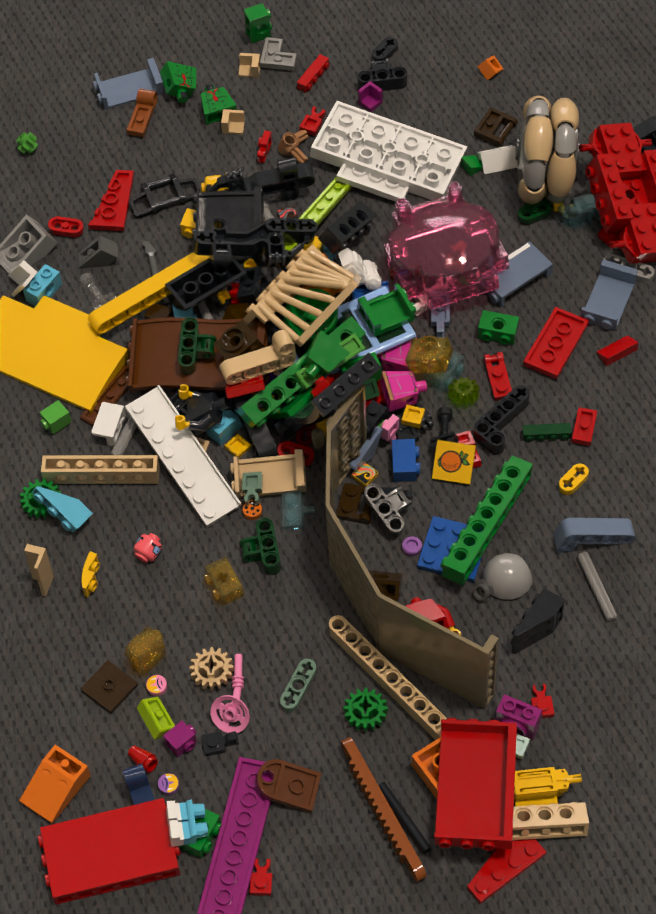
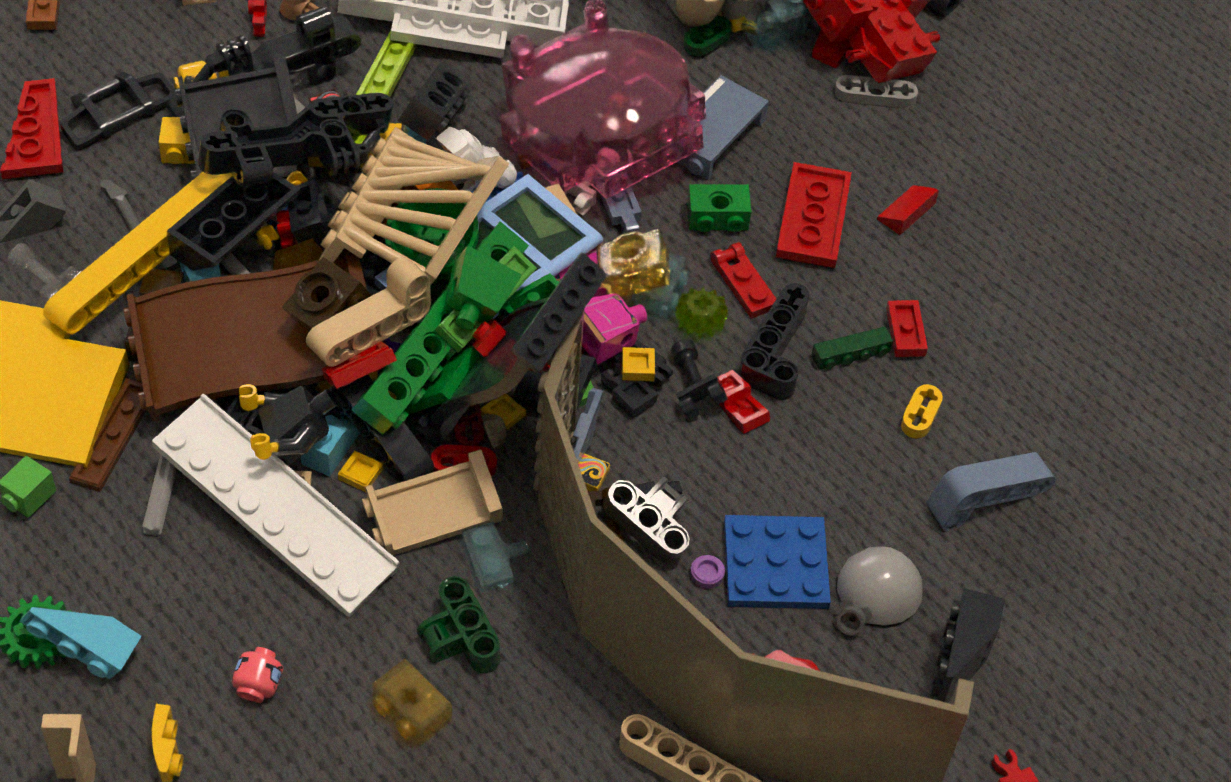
camera: 25 degrees left, 5 degrees down
(101, 469) = (133, 557): tan brick -> none
(109, 422) = (126, 475): white panel -> none
(201, 347) = (256, 316): dark green piece -> none
(252, 484) = (410, 529): sand green plate -> none
(252, 510) = (419, 570): orange tile -> none
(387, 311) = (547, 208): green panel -> none
(389, 428) = (611, 386): bright pink plate -> none
(404, 460) = (647, 436): blue brick -> none
(453, 462) = (729, 421): yellow tile -> none
(487, 520) = (820, 504): green brick -> none
(597, 586) = (1026, 570): light grey axle -> none
(610, 295) = (865, 131): sand blue panel -> none

